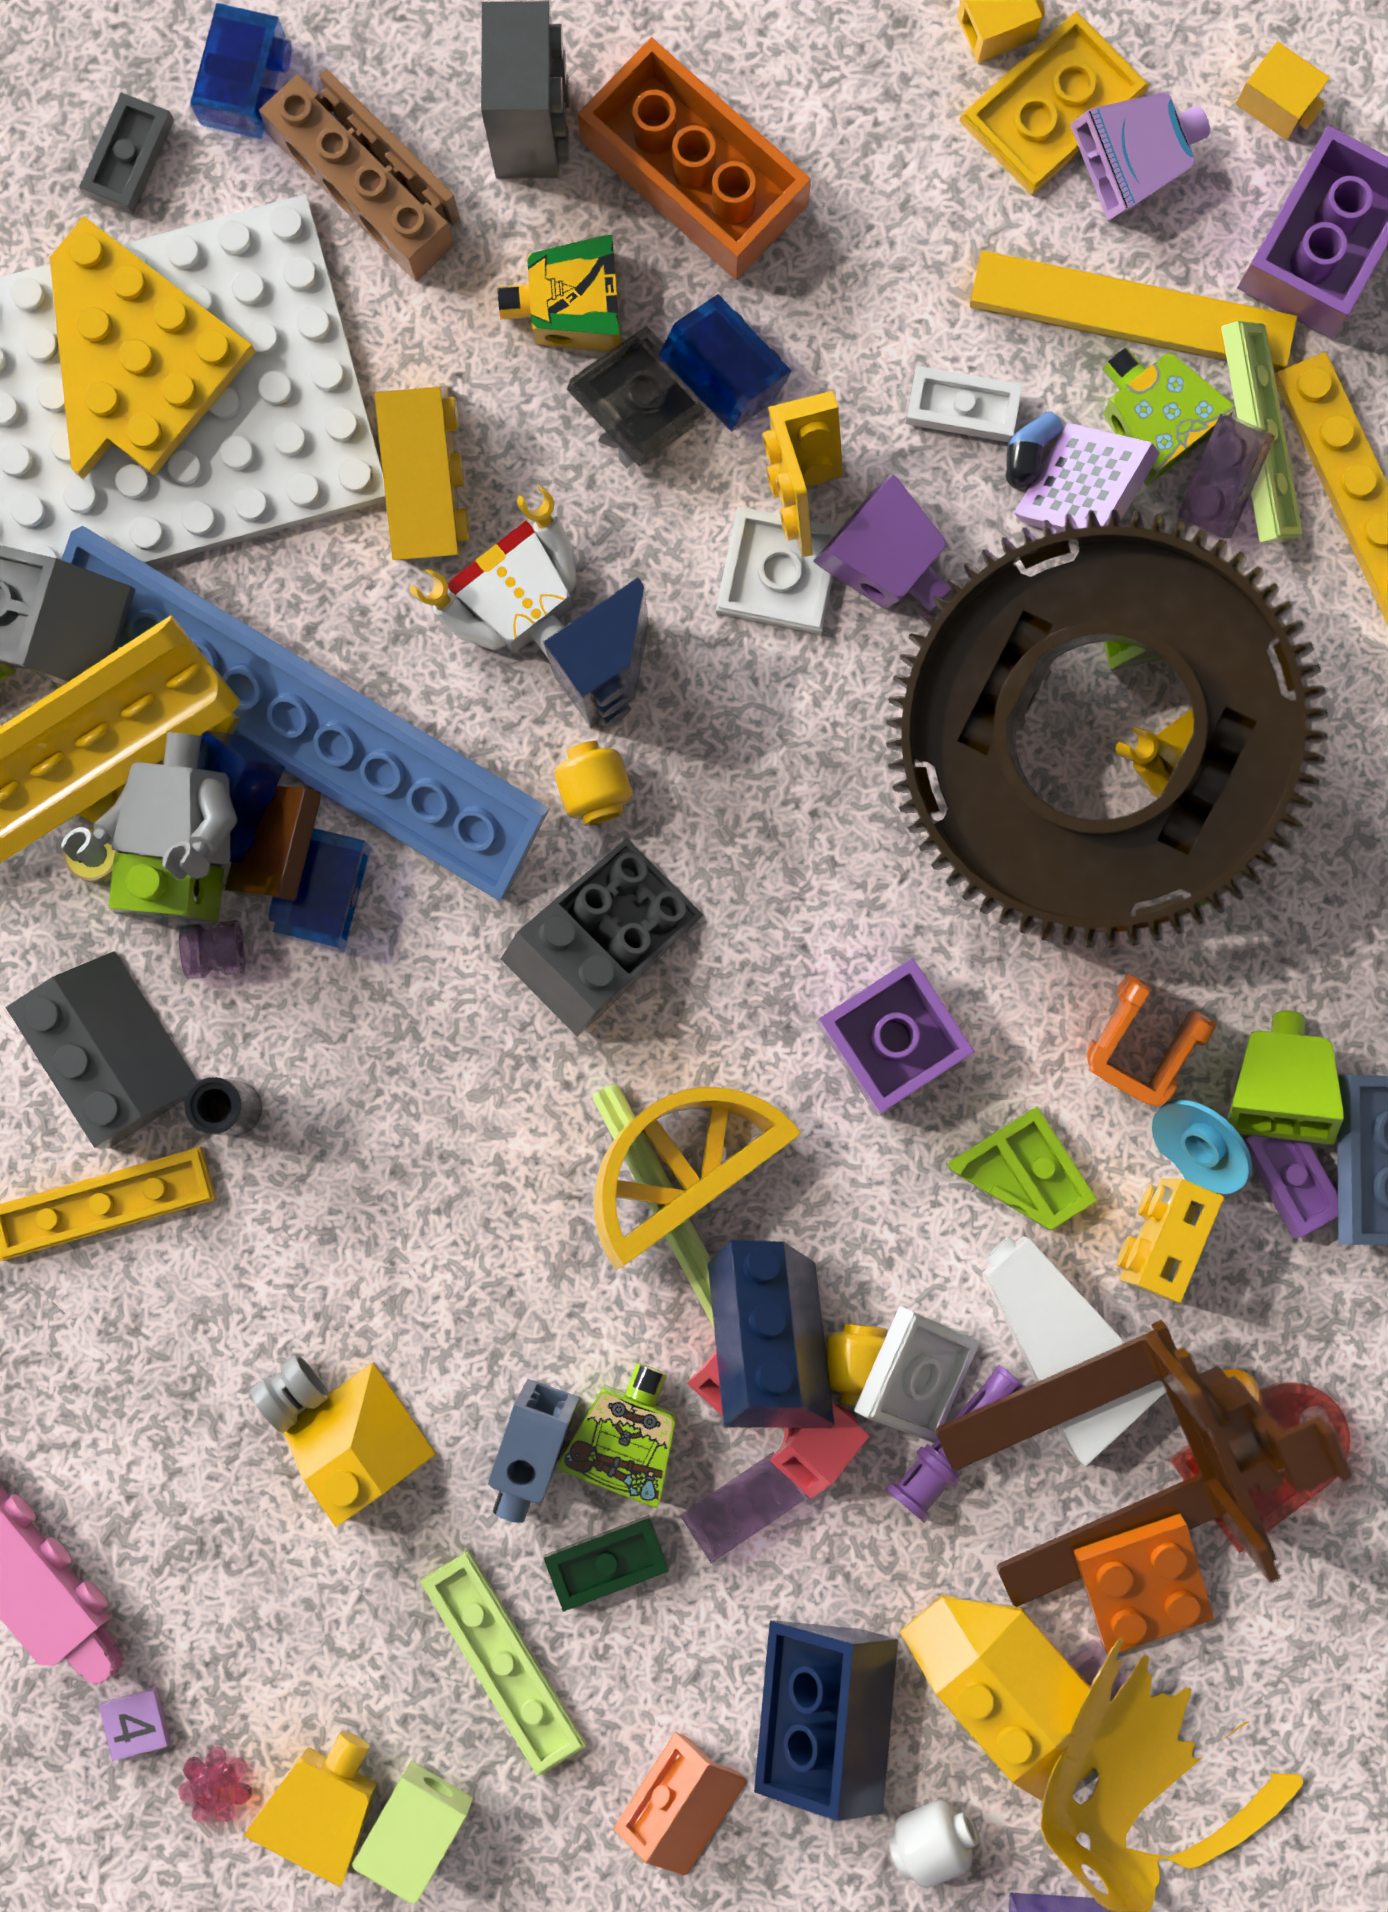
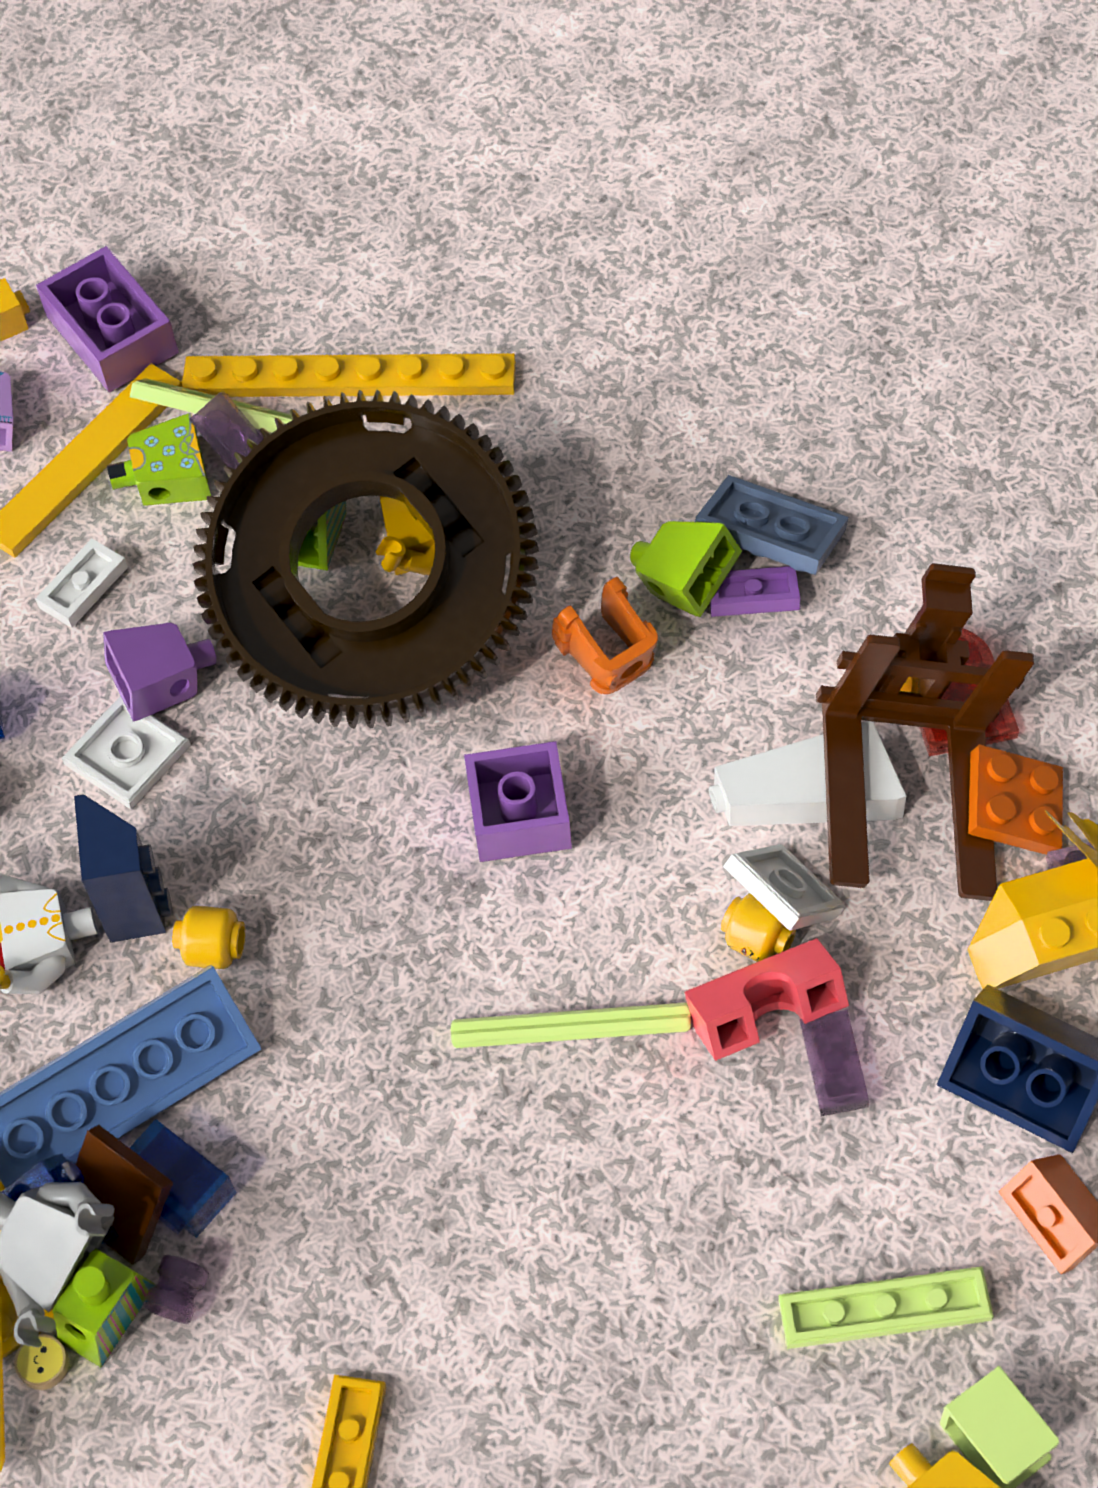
camera: 65 degrees left, 25 degrees down
(103, 1049) = (209, 1421): dark grey slope -> none
(203, 1104) = (310, 1321): black pin -> none
(289, 1393) = (578, 1383): light grey wheel -> none
(356, 1445) = (647, 1351): yellow slope -> none
(531, 1435) = (703, 1179): sand blue torso -> none
(600, 936) = (332, 986): dark grey slope -> none
(606, 1563) = (835, 1186): dark green plate -> none
(625, 1439) = (740, 1126): torso -> none
(715, 1177) = (539, 1044): yellow window -> none
(769, 1337) = (701, 973): dark blue slope -> none
(804, 452) = (60, 694): yellow bracket -> none
(932, 1470) = (861, 905): medium lavender pin -> none
(1026, 1171) = (665, 760): lime wing -> none
(1027, 448) = (141, 556): arm -> none
(1087, 473) = (174, 518): tile -> none
(1168, 1237) = (748, 676): yellow piece -> none
(1202, 1146) = (713, 642): medium azure dish -> none

